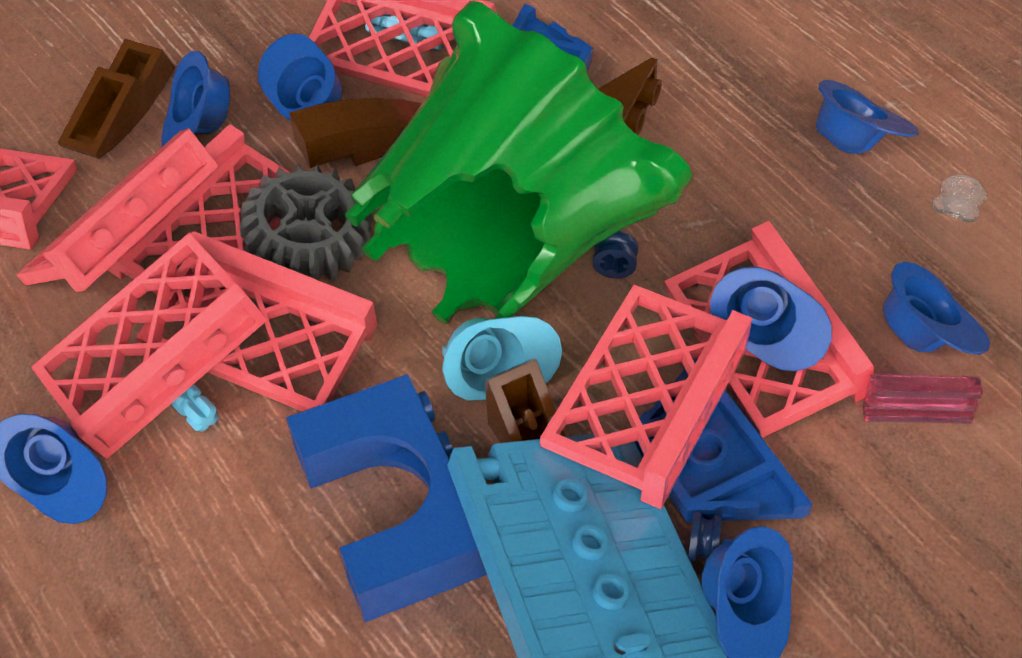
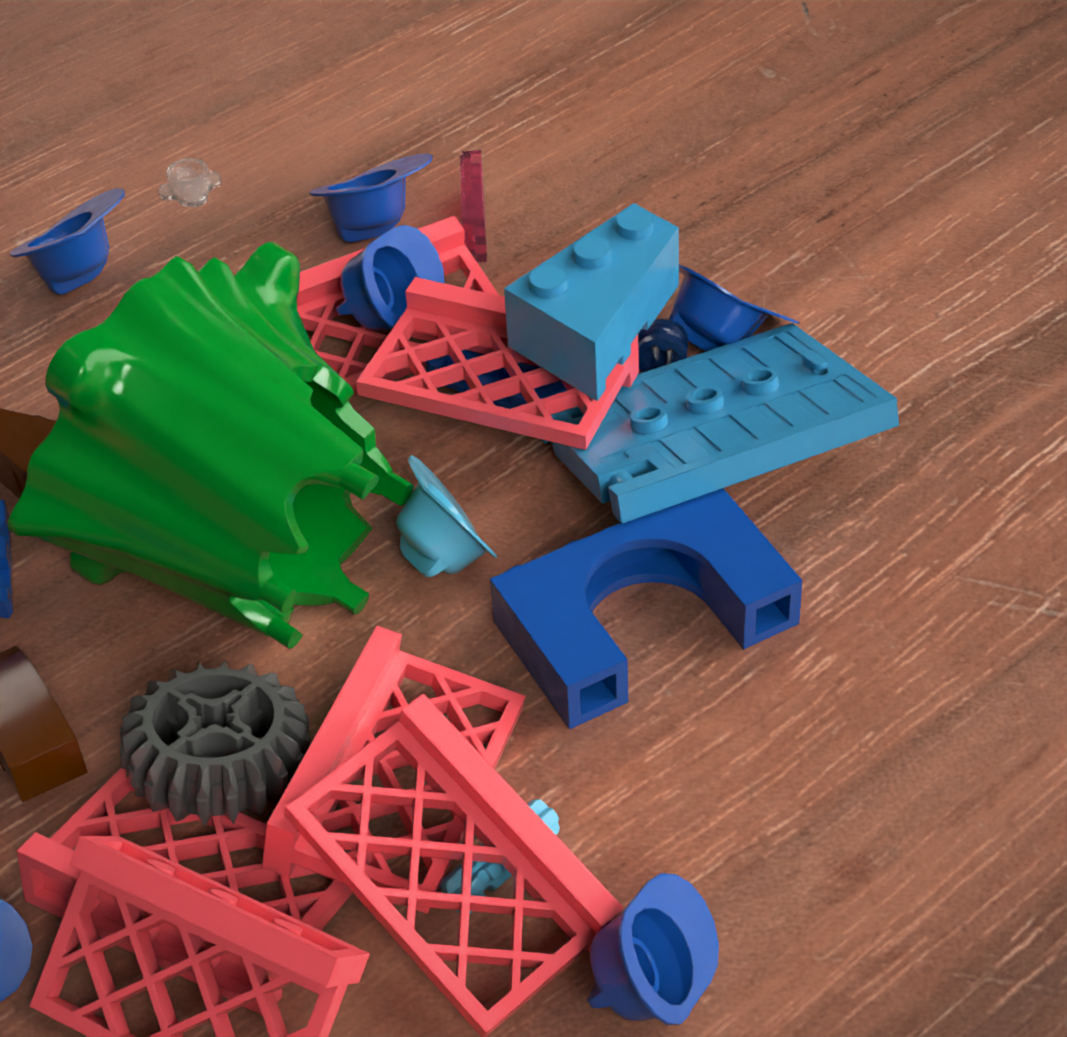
camera: 95 degrees left, 5 degrees down
(519, 403) = (527, 494): reddish brown slope -> none
(671, 426) = (594, 298): none -> dark azure wedge

